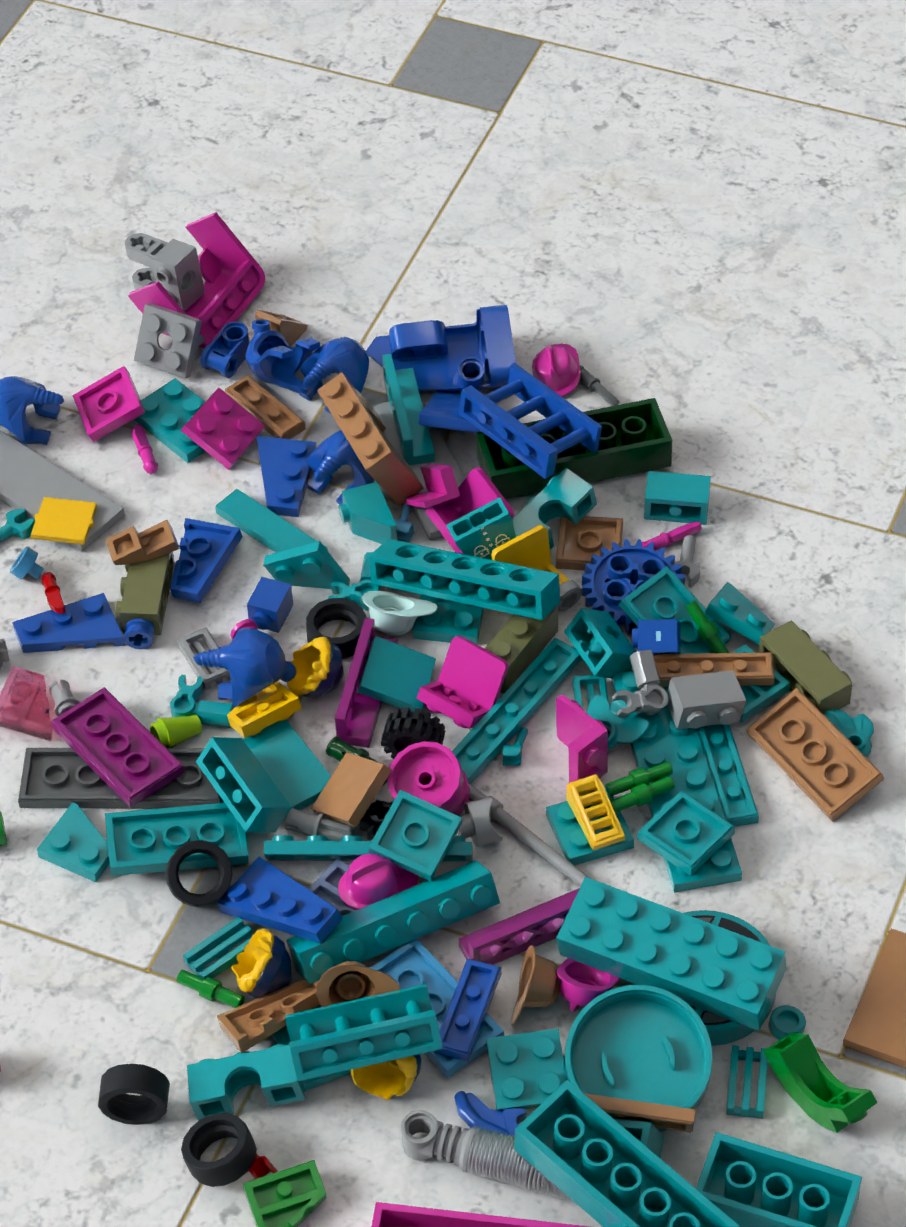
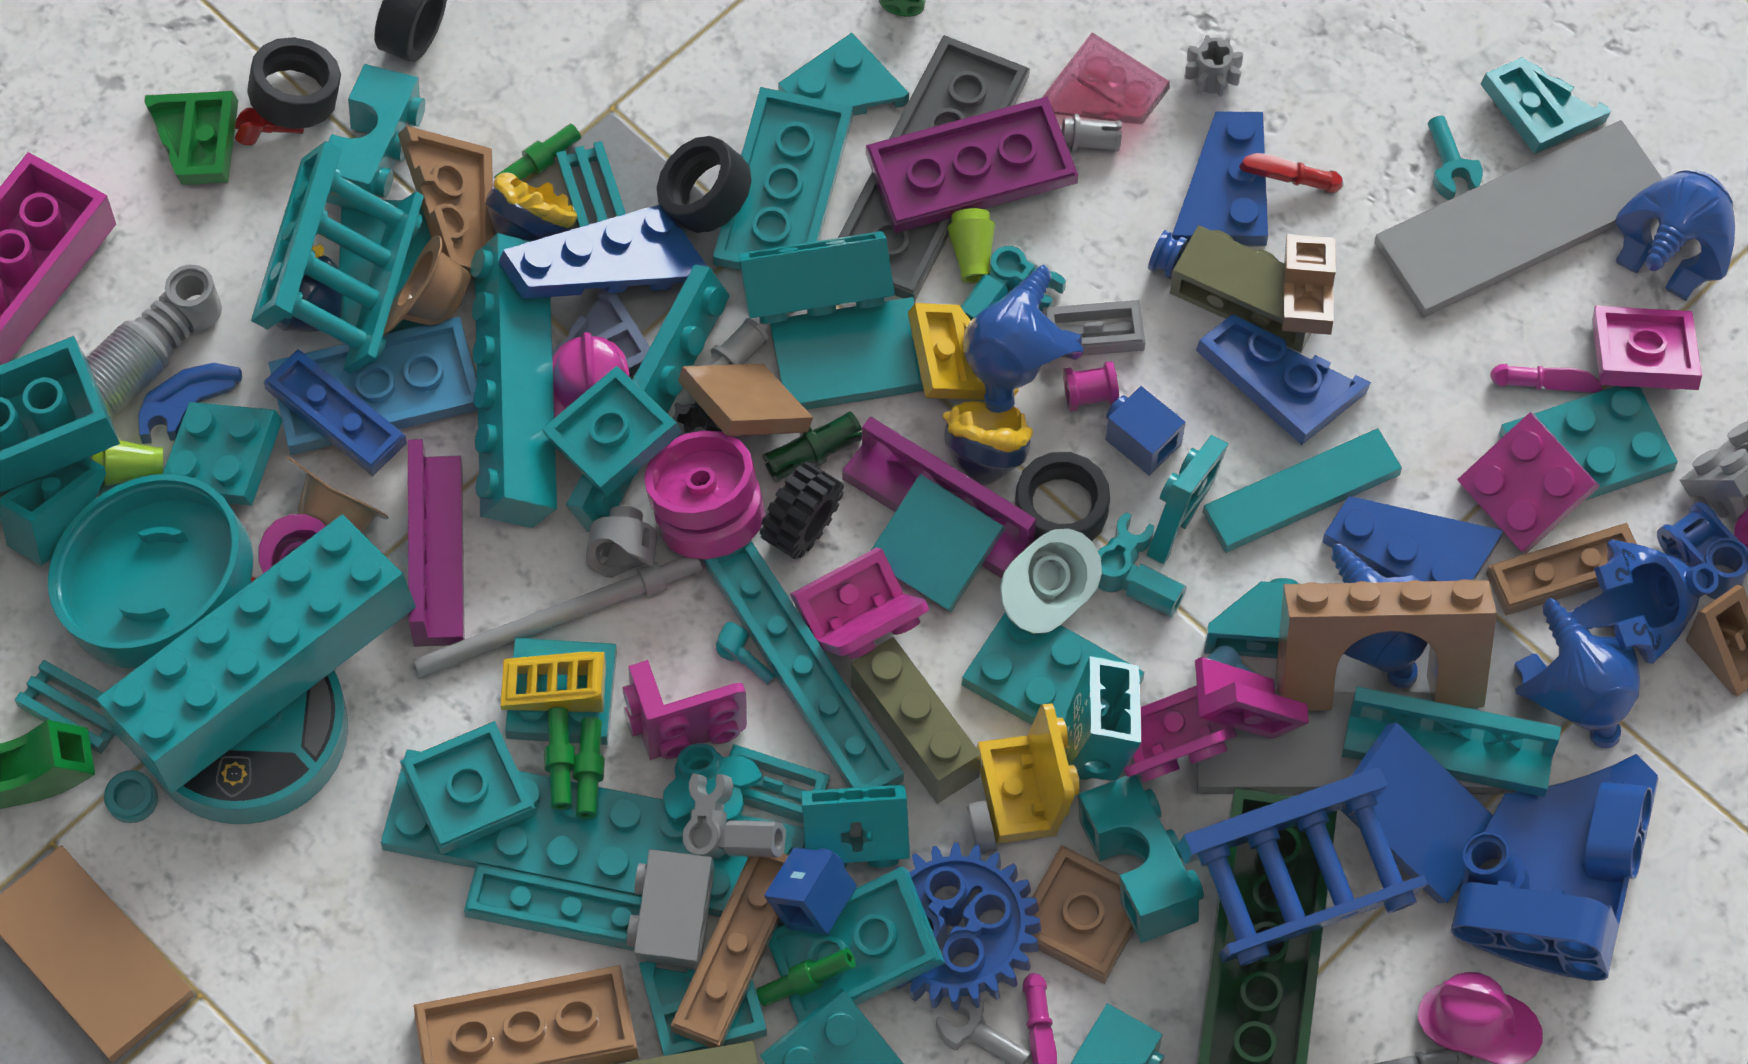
camera: 110 degrees right, 15 degrees up
(26, 564) = (1364, 156): dark azure tile -> none
(64, 520) = (1428, 224): yellow piece -> none
(465, 579) = (933, 725): teal brick -> none
(659, 1115) = (62, 524): medium nougat tile -> none

